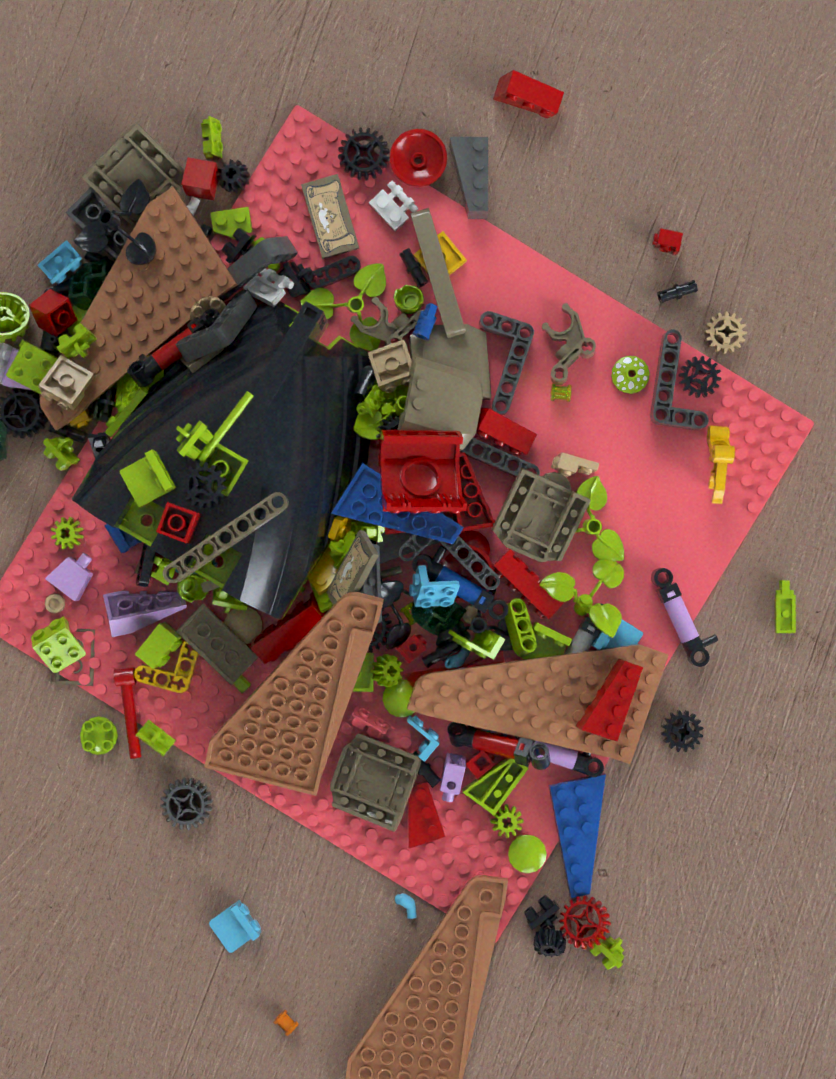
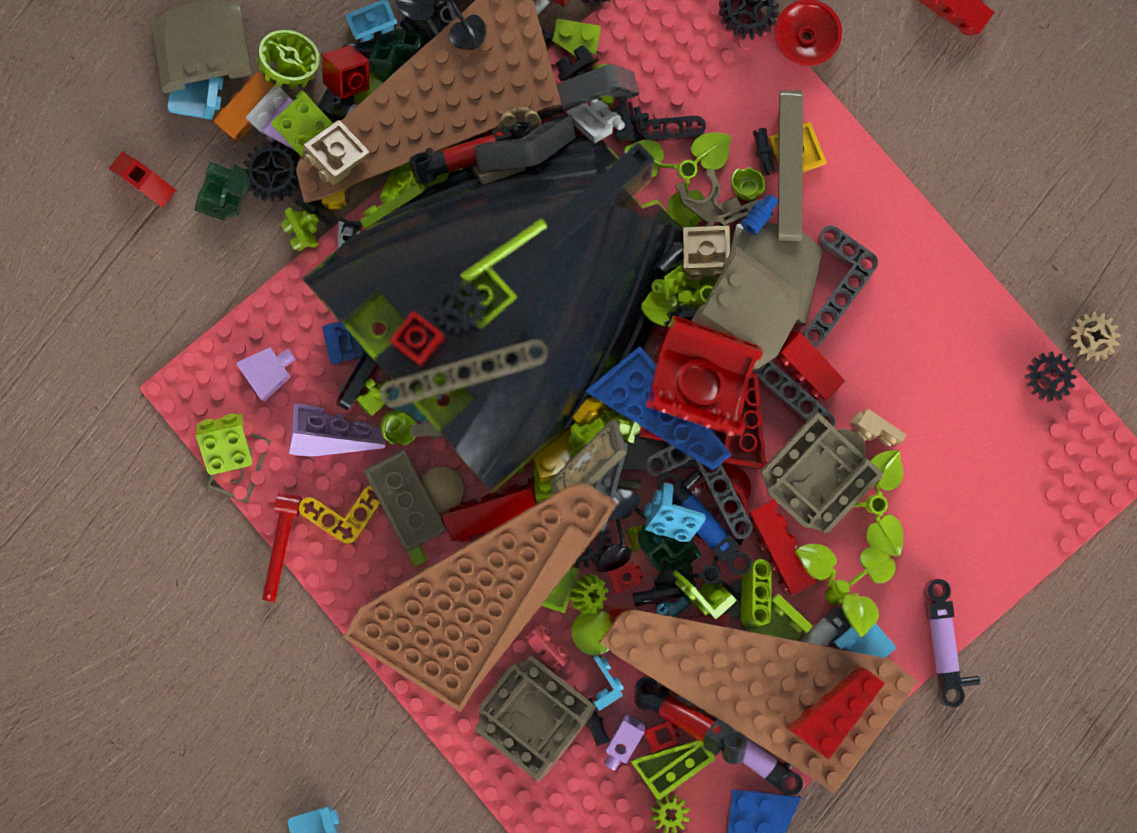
camera: 20 degrees right, 5 degrees down
(55, 603) = (236, 396): tan tile -> none
(60, 533) = (270, 317): lime gear -> none
(77, 343) = (363, 112): lime hips -> none
(98, 735) = (234, 562): lime dish -> none
(103, 406) = (365, 193): black hips -> none
(147, 479) = (398, 280): lime bracket -> none
(155, 738) = (299, 585): lime hips -> none
(159, 645) = (339, 480): lime brick -> none
(177, 817) = (322, 688): dark grey gear -> none
(187, 446) = (454, 259): lime hips -> none
(227, 601) = (435, 454): lime hips -> none
(330, 216) = (688, 65): tile -> none
(389, 210) = (757, 80): white plate -> none
(423, 816) = (575, 777): red wing -> none
(470, 613) = (706, 558): tan tile -> none
(471, 165) = (865, 60): dark grey wedge -> none
(560, 393) = (891, 343): clear neon green bush -> none
(572, 349) = (916, 298): dark tan piece -> none
(626, 383) = (962, 355): lime dish -> none
(667, 241) = (1060, 213): red brick -> none
(668, 388) = (1010, 376): dark grey beam -> none
(677, 291) = (1054, 273): black pin -> none
(683, 723) = (900, 785): black gear -> none
(720, 455) = (1047, 470): yellow piece -> none
(785, 608) = (1068, 673): lime hinge -> none

